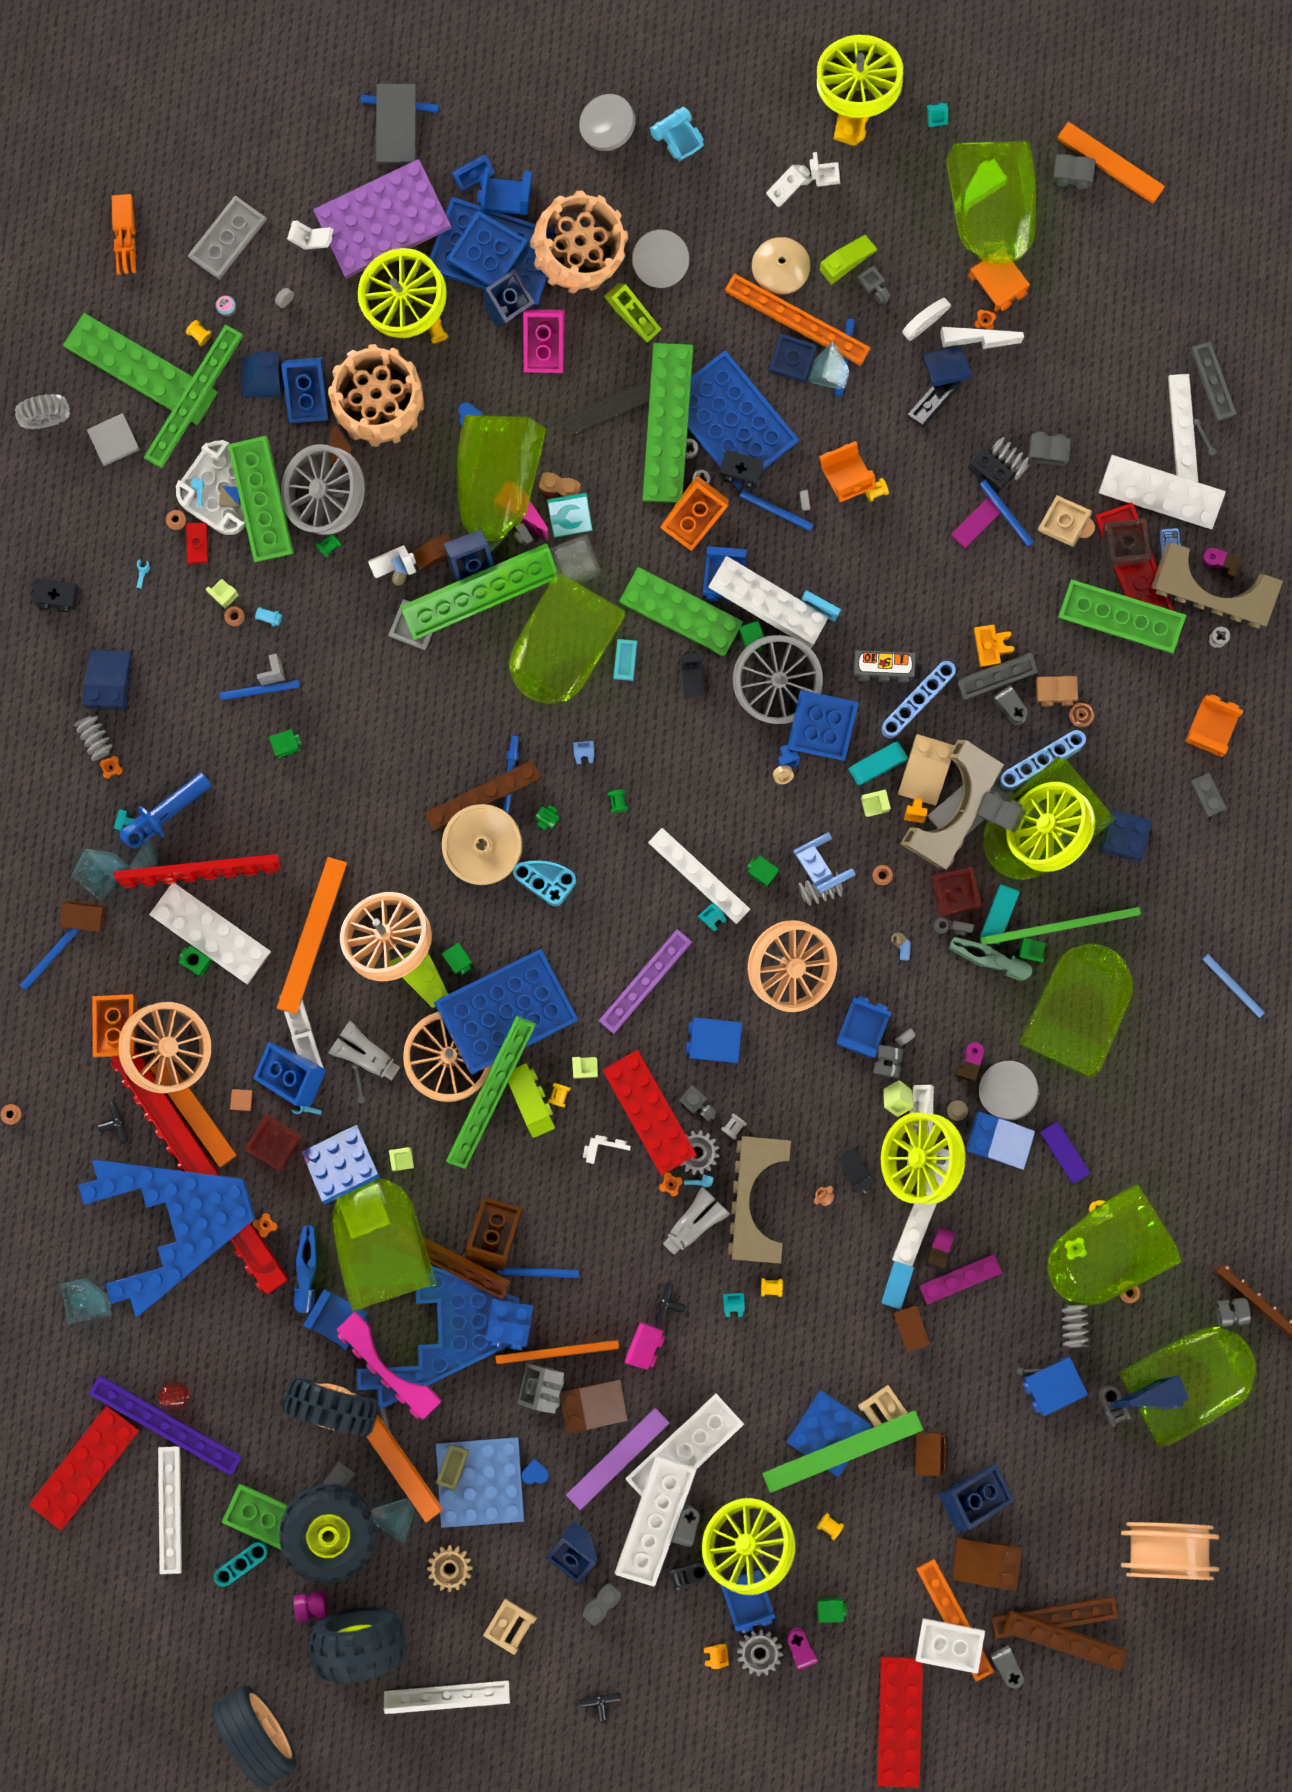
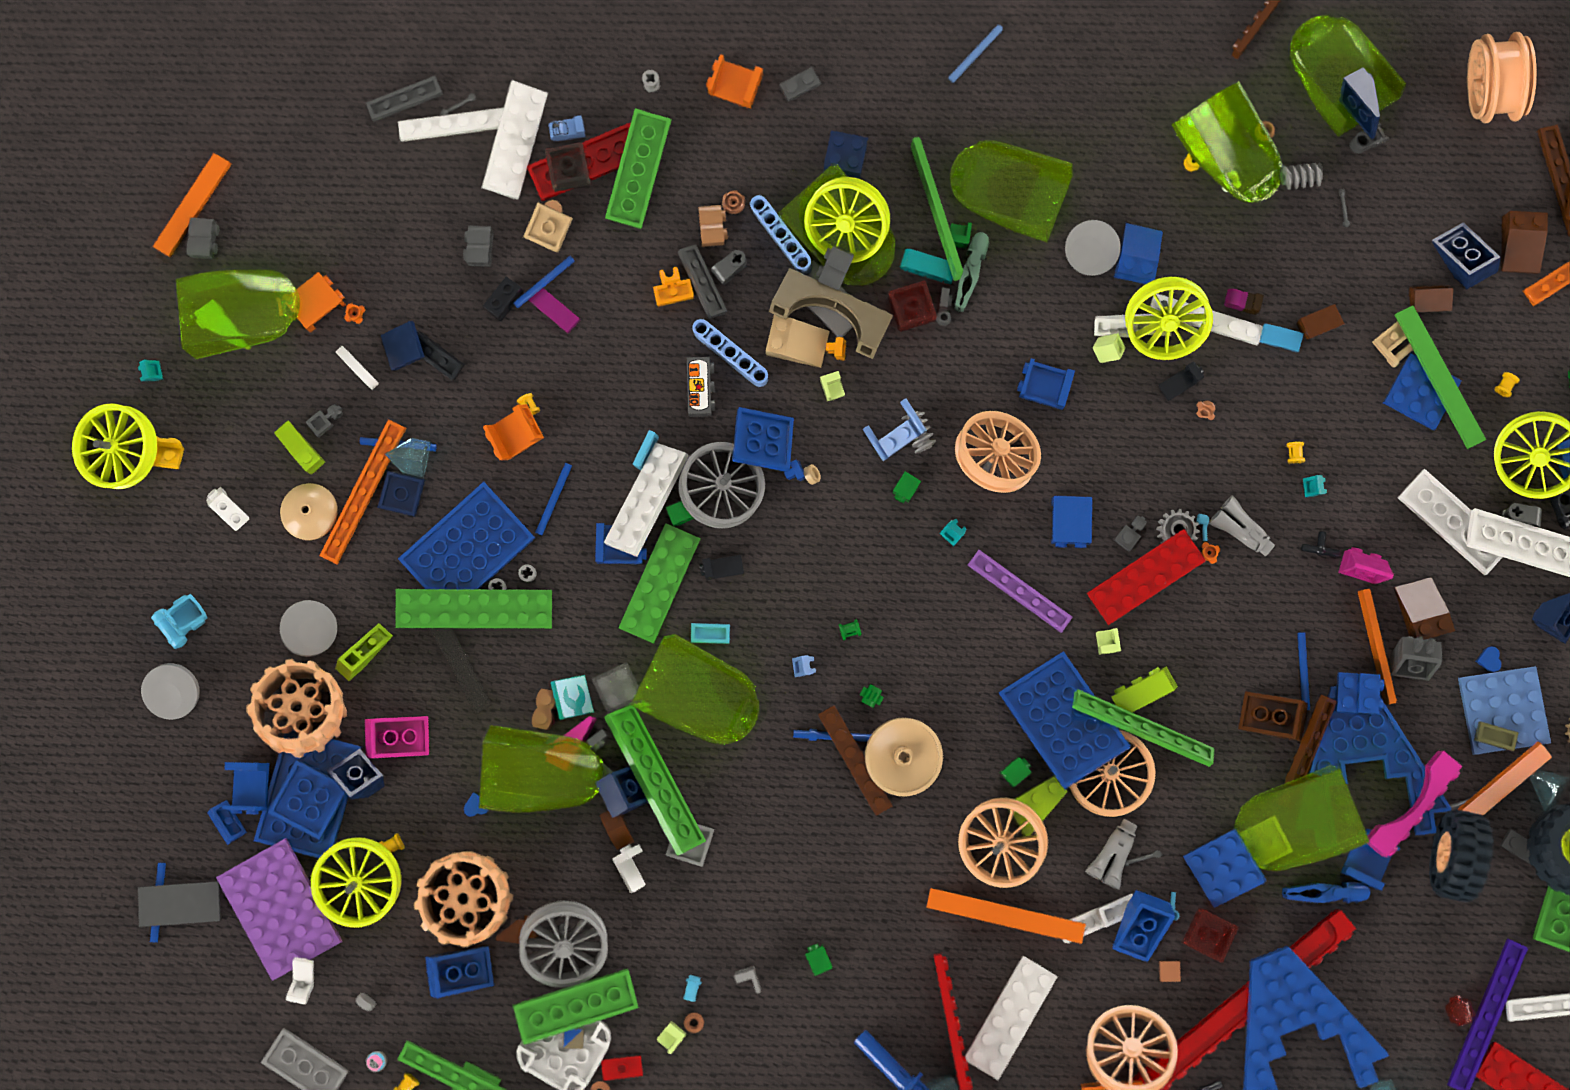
camera: 90 degrees left, 0 degrees up
(198, 1119) = (1194, 1009): orange tile -> none
(199, 485) = (564, 1071): medium azure hand -> none
(201, 966) = (1048, 1026): green brick -> none
(259, 689) = (765, 990): blue bar -> none
(261, 375) = (447, 1018): dark blue slope -> none
(264, 1231) = (1294, 937): orange plate -> none
(328, 545) = (616, 935): green bush -> none
(400, 571) = (640, 860): arm -> none
(401, 1159) = (1211, 810): yellowish green panel -> none
(551, 875) = (927, 687): medium azure beam -> none
(559, 1095) = (1136, 664): yellow bush -> none
(590, 1151) = (1187, 630): white bracket -> none
(617, 1458) = (1467, 583): medium lavender tile -> none
(695, 513) = (562, 575): orange slope -> none
(699, 876) = (914, 547): white plate -> none
(733, 462) = (513, 524): black brick -> none
(733, 1126) = (1153, 503): light grey bush -> none
(748, 1241) = (1177, 475): dark tan arch -> none
(805, 500) = (542, 472): light grey tile -> none
(824, 173) = (214, 474): white bracket -> none
(878, 762) = (794, 385): teal beam -> none
(882, 868) = (899, 370): nougat plate -> none
(888, 1054) = (1070, 355): dark grey wheel -> none
(903, 944) = (965, 351): arm -> none
(905, 1037) = (1051, 345): light grey tile -> none
(957, 1110) = (1114, 293): dark tan plate -> none
(960, 1279) = (1269, 282): magenta plate -> none
(973, 1058) = (1069, 282): leg -> none
(989, 338) = (373, 308): white slope -> none
(1009, 457) = (489, 281): light grey piece -> none
(1054, 1387) = (1359, 190): blue panel -> none
(1064, 1152) = (1143, 195): dark purple tile -> none
(1175, 579) = (618, 51): dark tan arch -> none
(1223, 561) = (578, 80): leg -> none
(1232, 1312) = (1274, 38): dark grey wheel -> none

